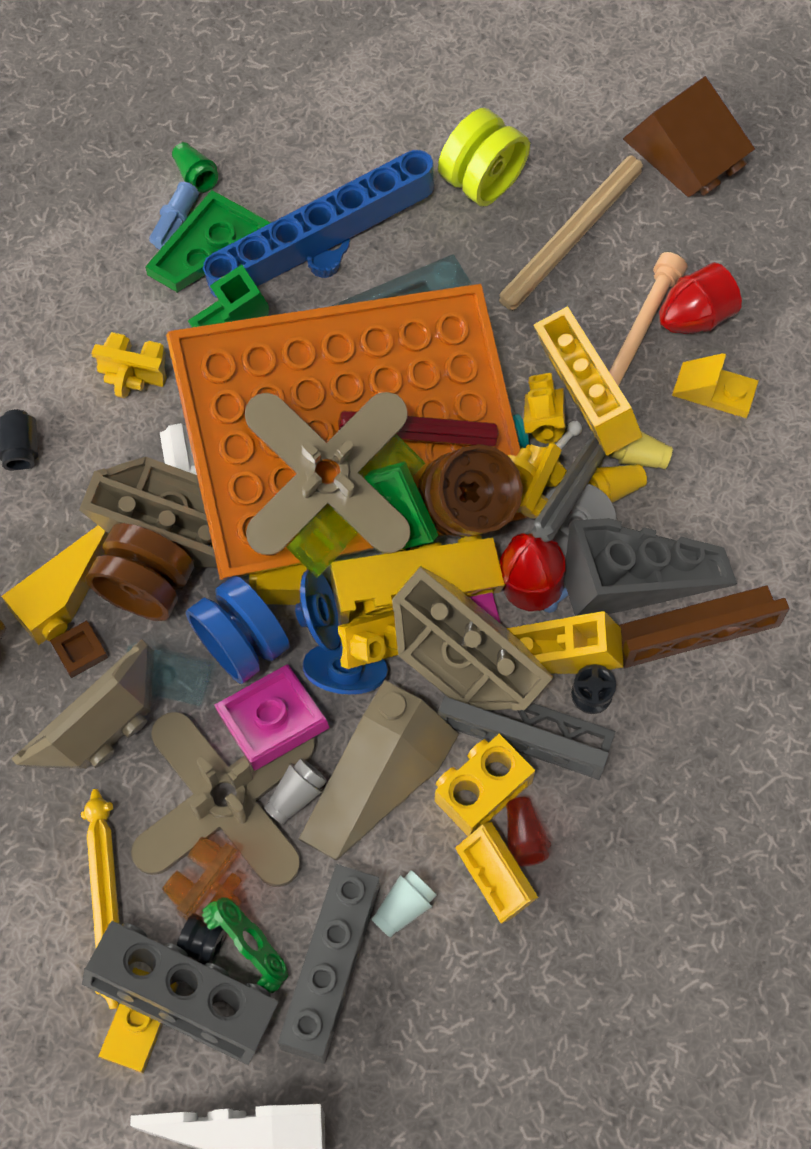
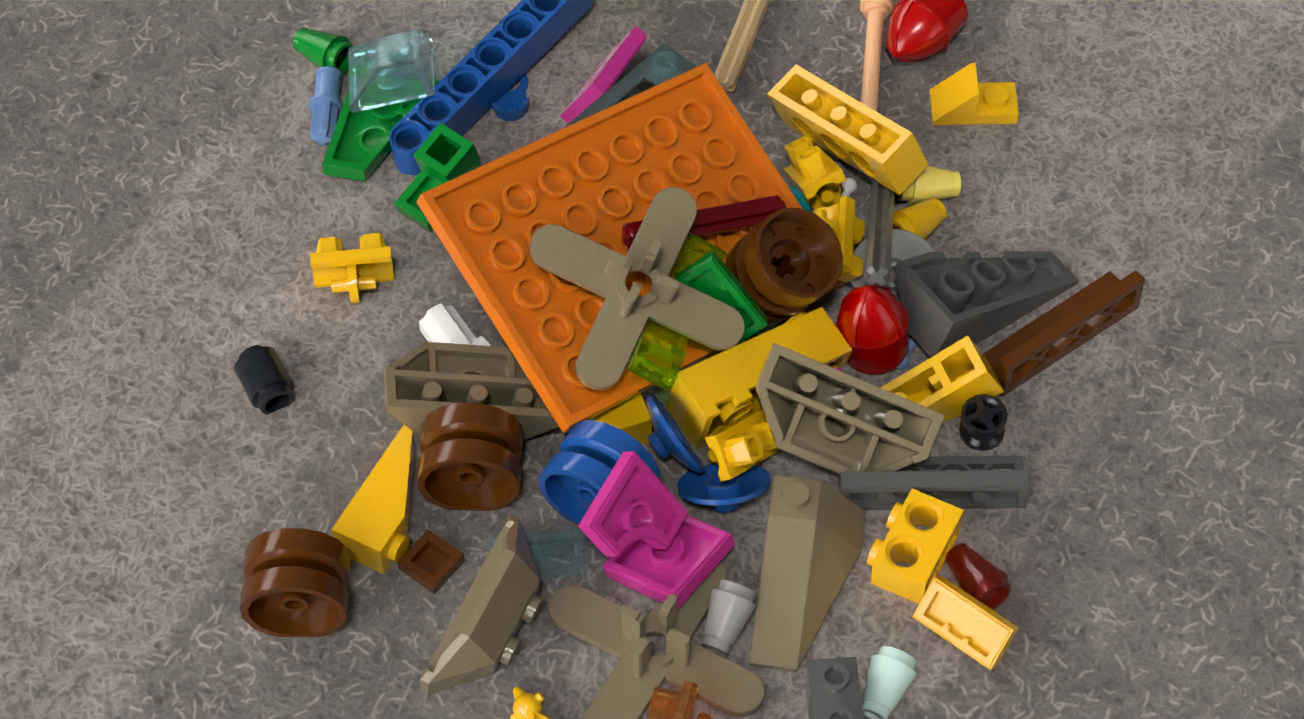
camera: 20 degrees left, 10 degrees down
(232, 204) = (391, 70): none -> clear light blue slope
(244, 670) = (632, 508): none -> dark pink tile
(408, 260) = (605, 73): none -> dark pink tile

